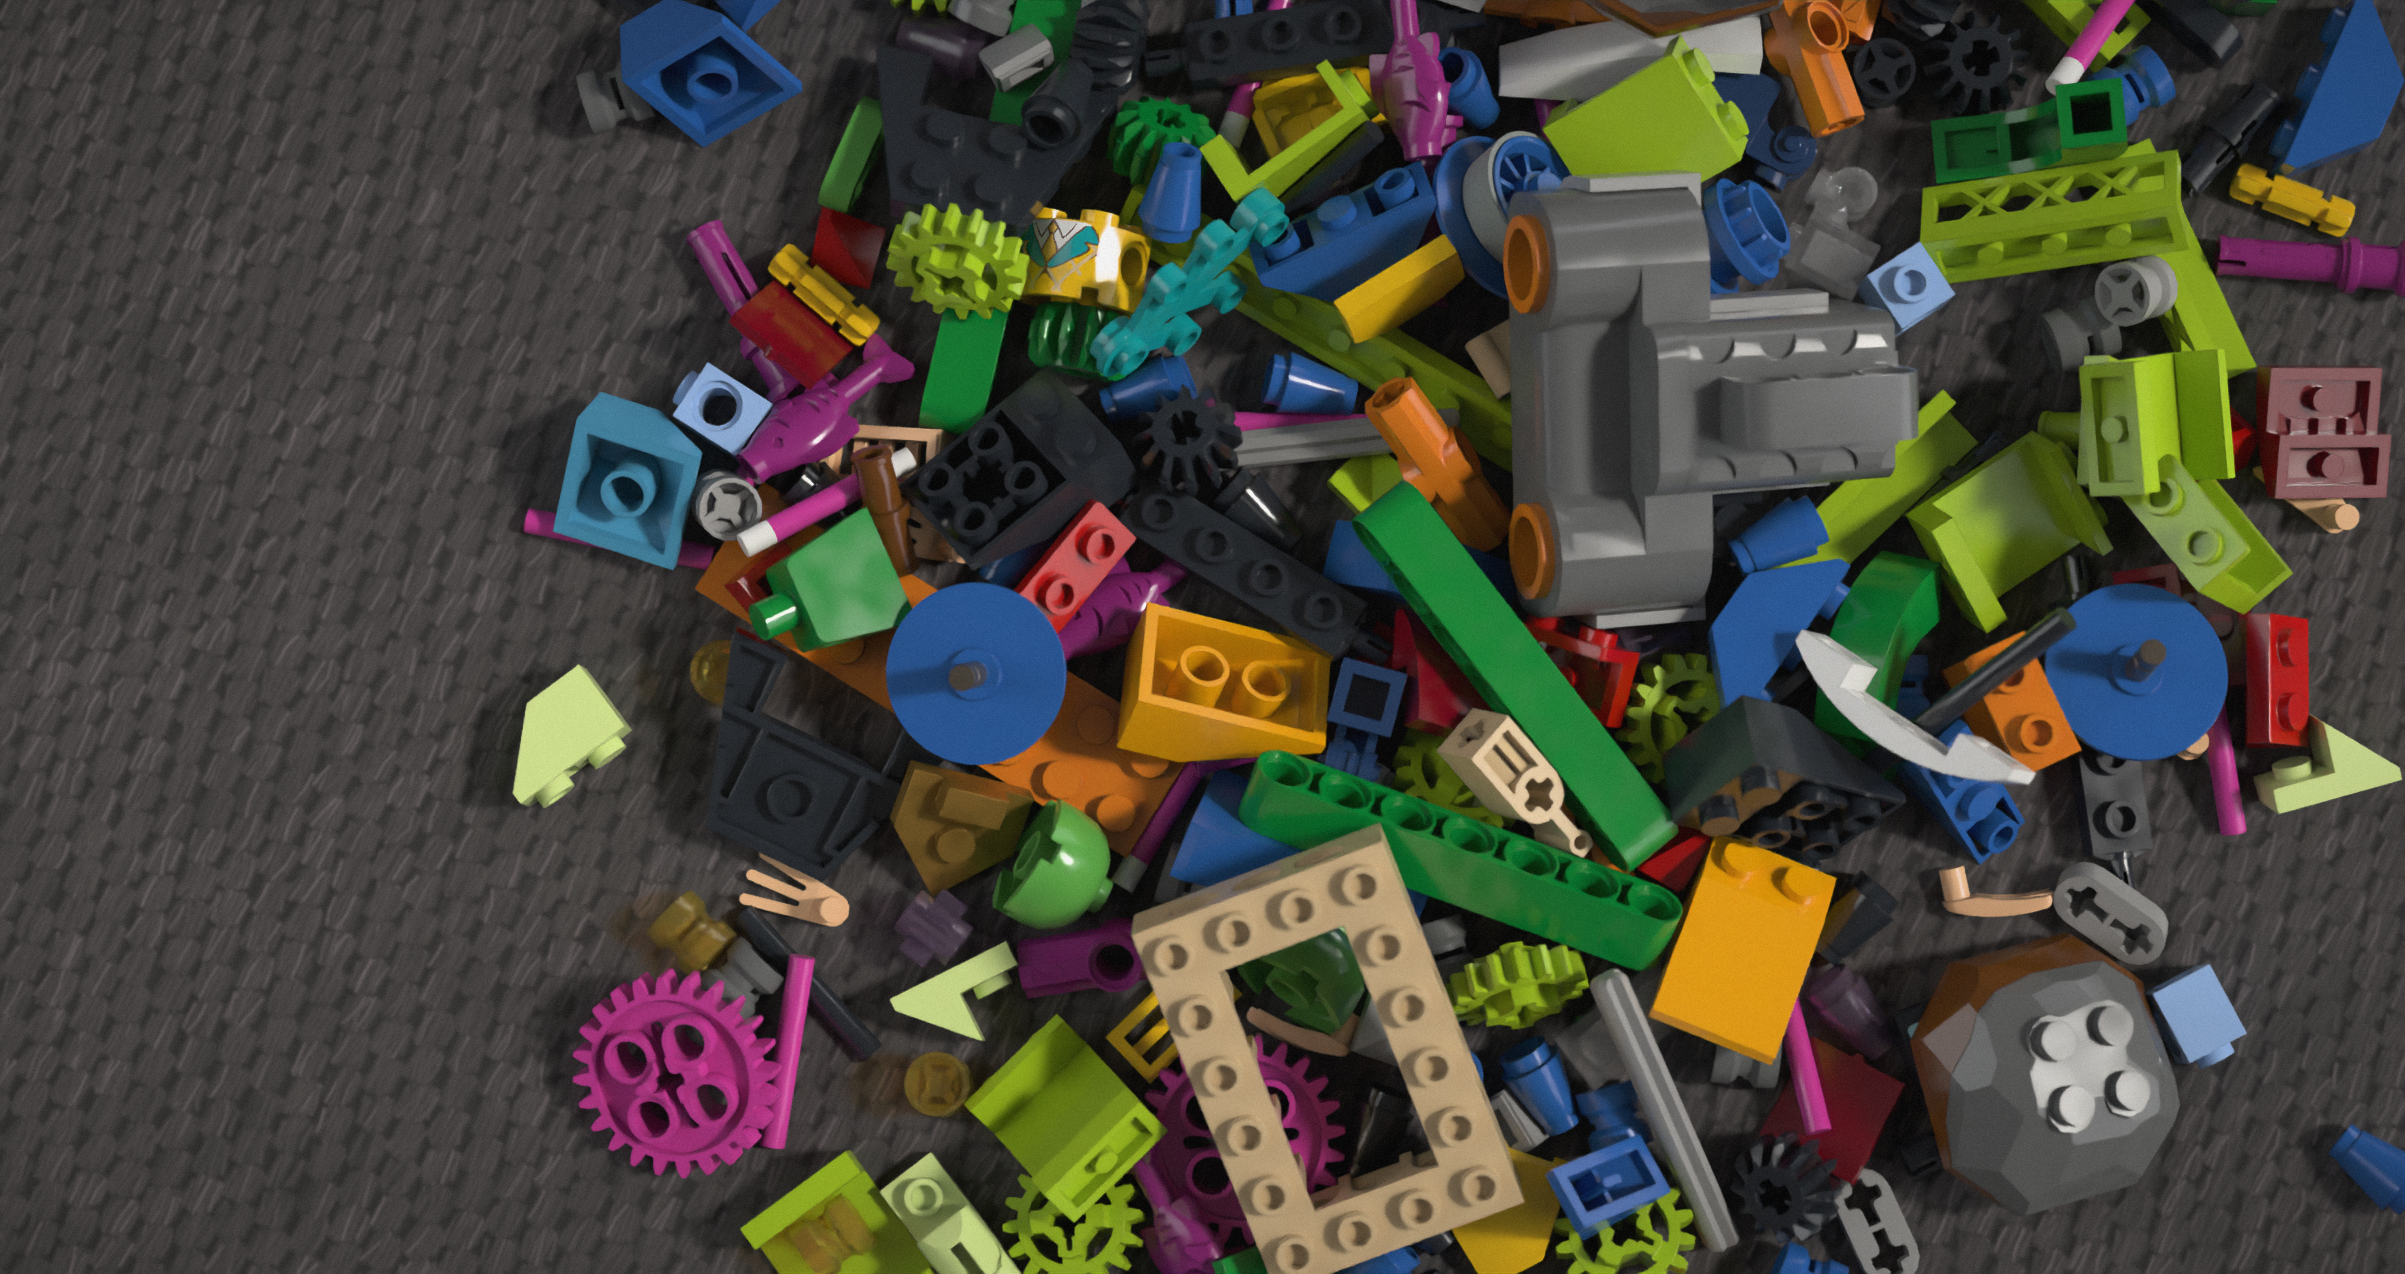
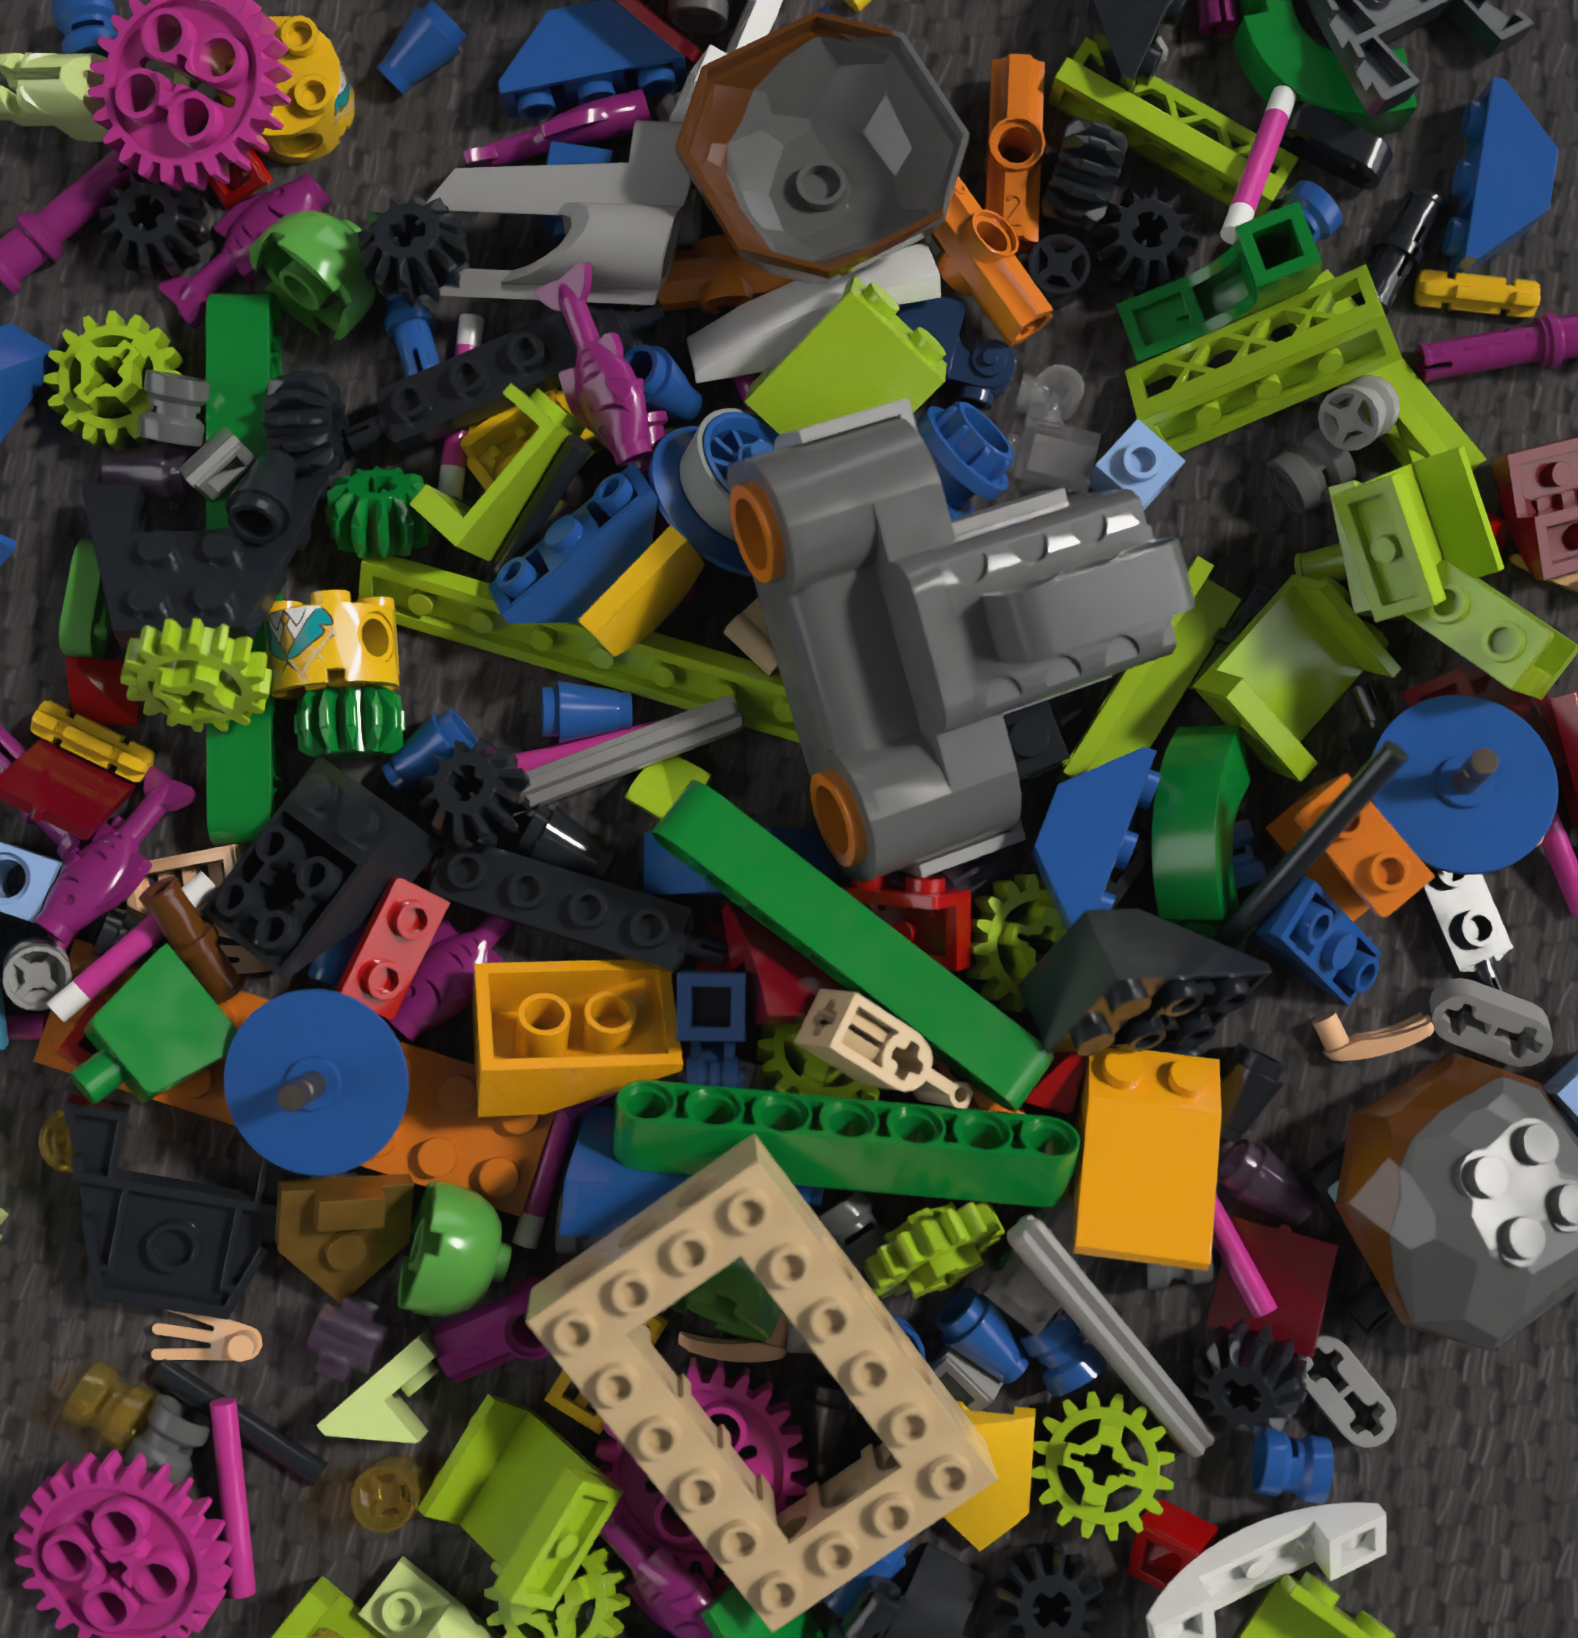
camera: 15 degrees left, 0 degrees up
(1173, 290) = (414, 653): teal plant -> none
(1174, 195) = (398, 556): blue cone -> none
(1439, 463) = (726, 753): orange piece -> none
(1607, 1185) = (1075, 1433): blue slope -> none
(1779, 537) = (1078, 740): blue cone -> none
(1844, 681) = (1180, 865): white slope -> none

